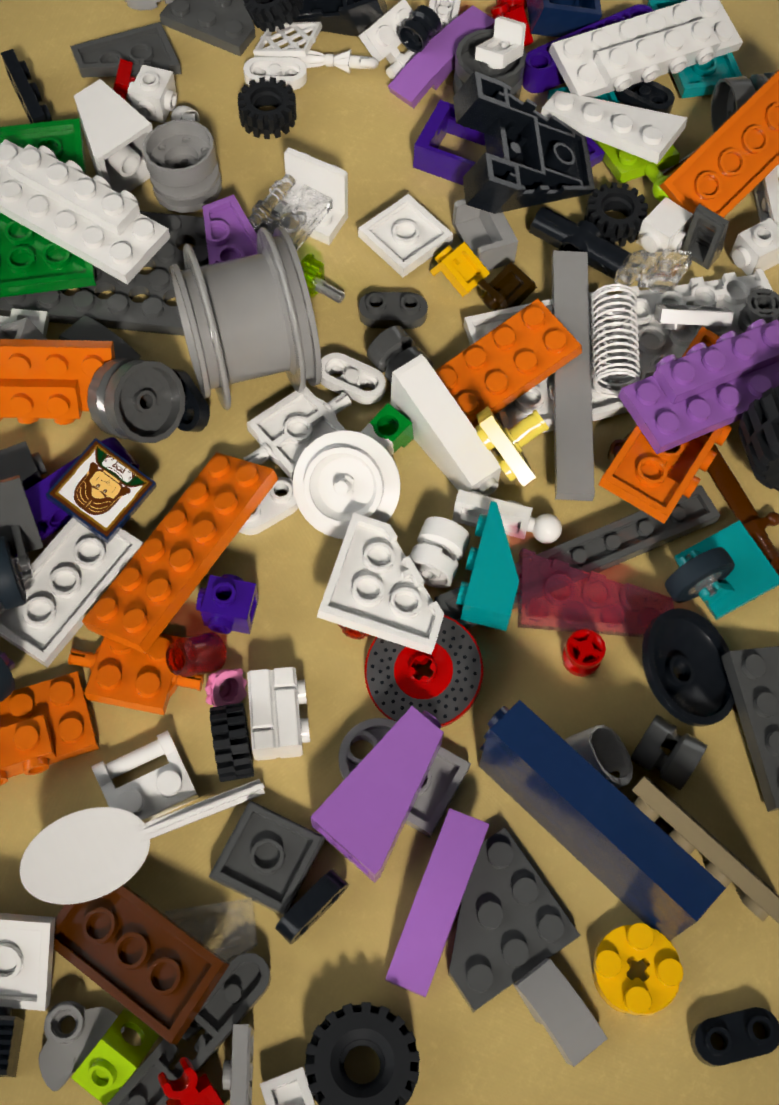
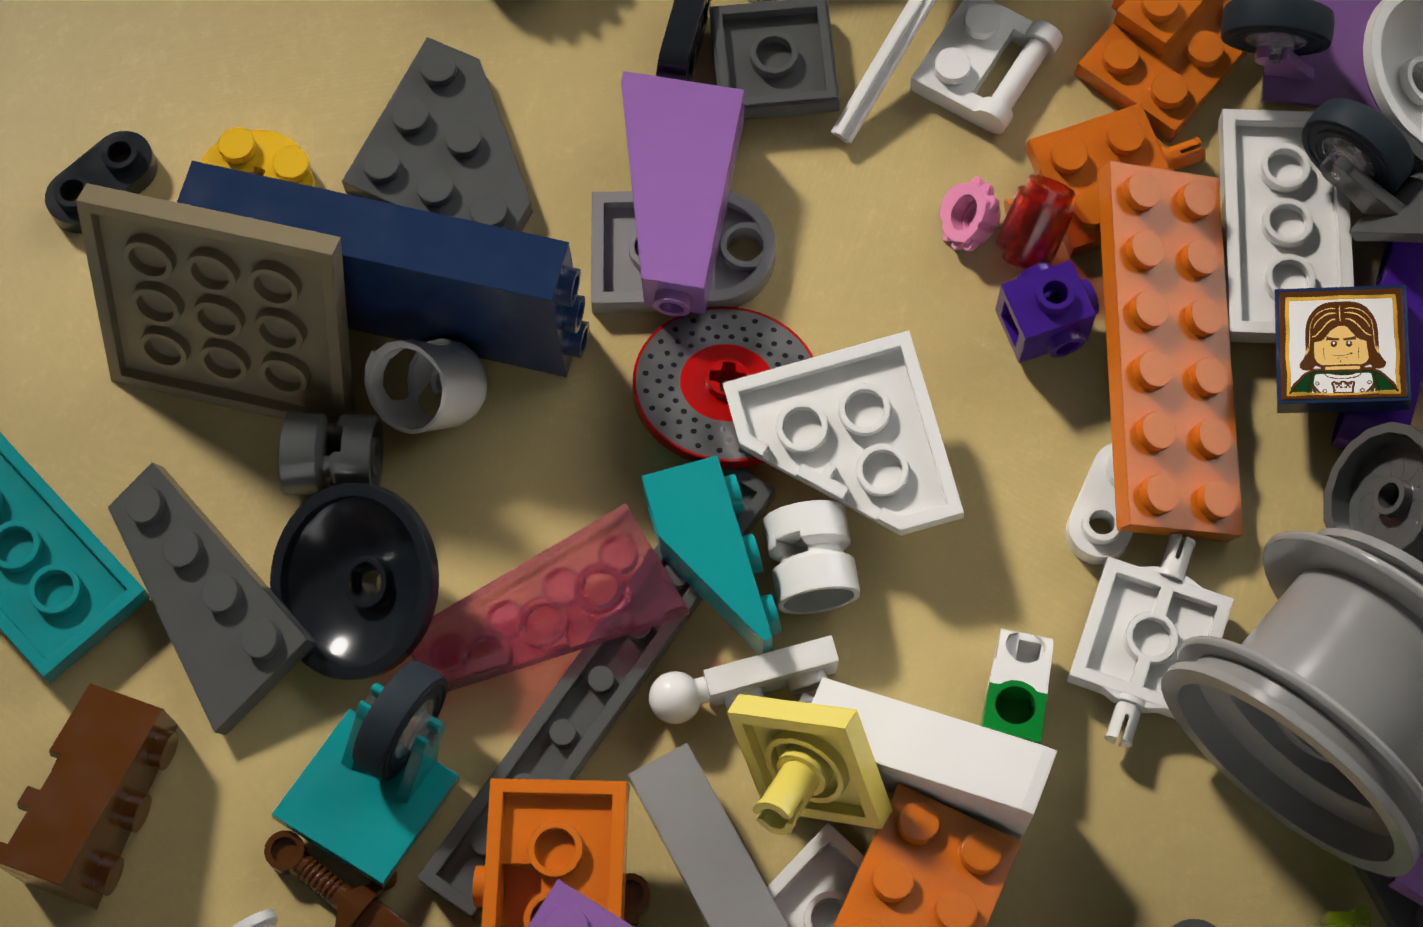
camera: 155 degrees right, 5 degrees up
(231, 742) = (908, 138): black tyre -> none
(276, 713) = (881, 218): white brick -> none
(344, 476) = (1009, 570): white piece -> none
(353, 378) = (1134, 785): white plate -> none
(392, 350) = (1056, 853): dark grey wheel -> none
(437, 902) = (536, 120): medium lavender slope -> none
(560, 1011) = (327, 84): light grey slope -> none
(587, 644) = (515, 524): red wheel -> none

